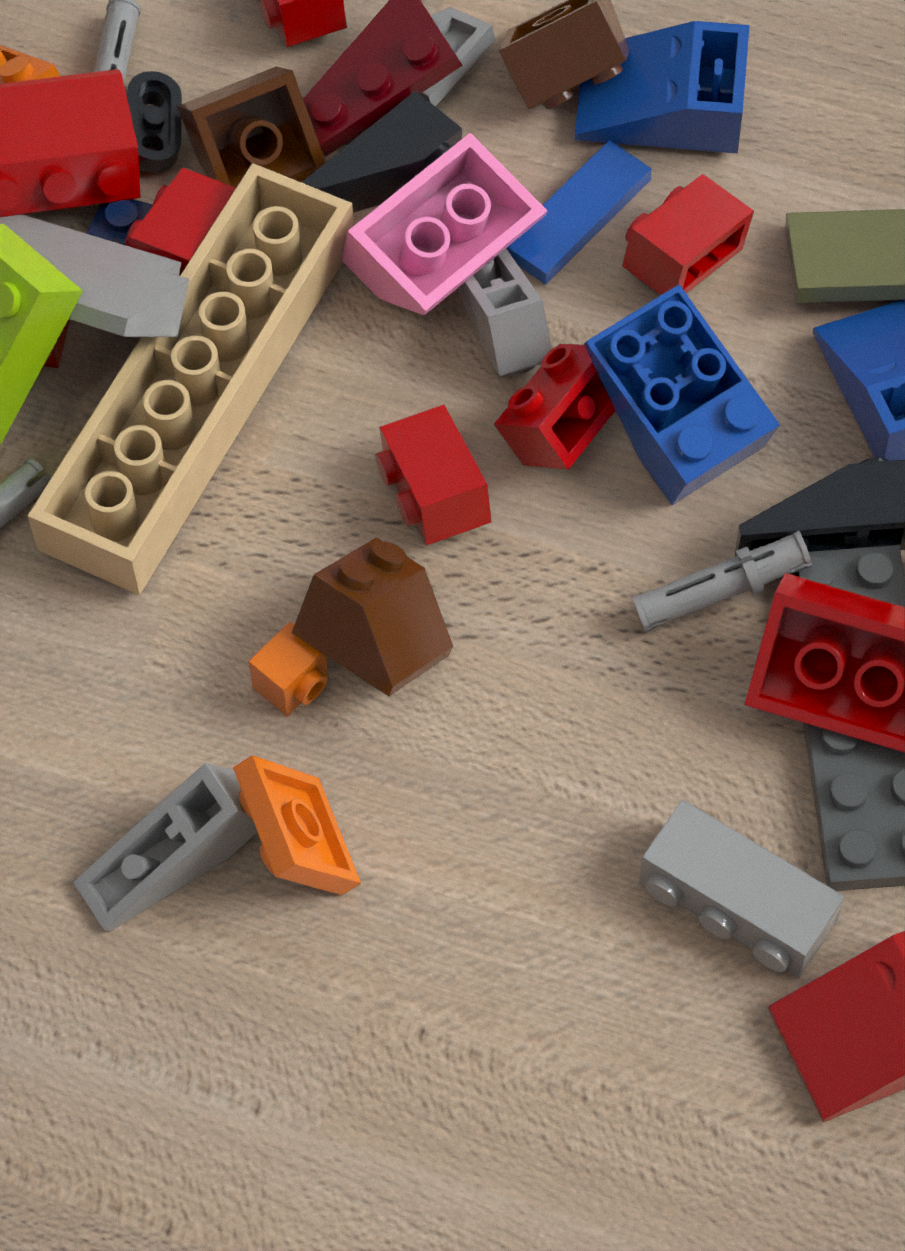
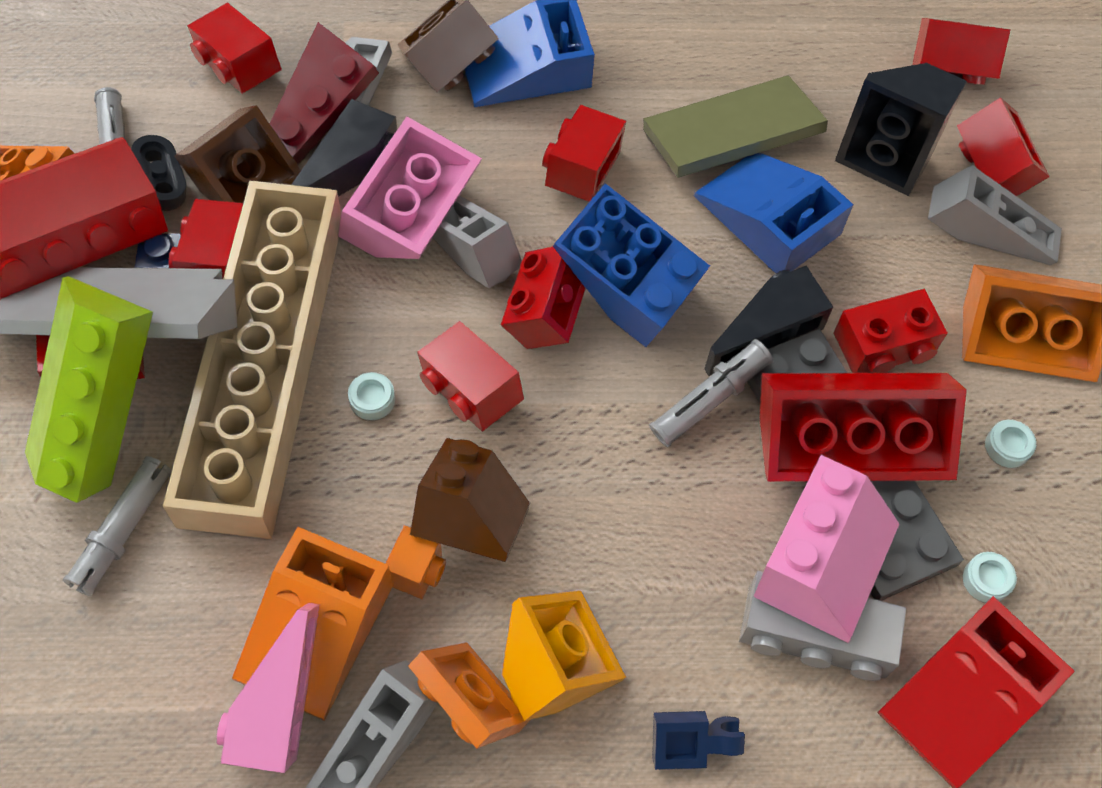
camera: 25 degrees left, 0 degrees up
(73, 769) = (268, 713): none -> bright pink slope
(153, 696) = (349, 598): none -> orange slope
(312, 466) = (371, 396): none -> light aqua tile
(414, 819) = (556, 654): none -> light orange slope
(525, 960) = (686, 738): none -> dark blue plate
(580, 211) = (500, 153): blue tile -> none
(774, 798) = (830, 550): none -> bright pink slope

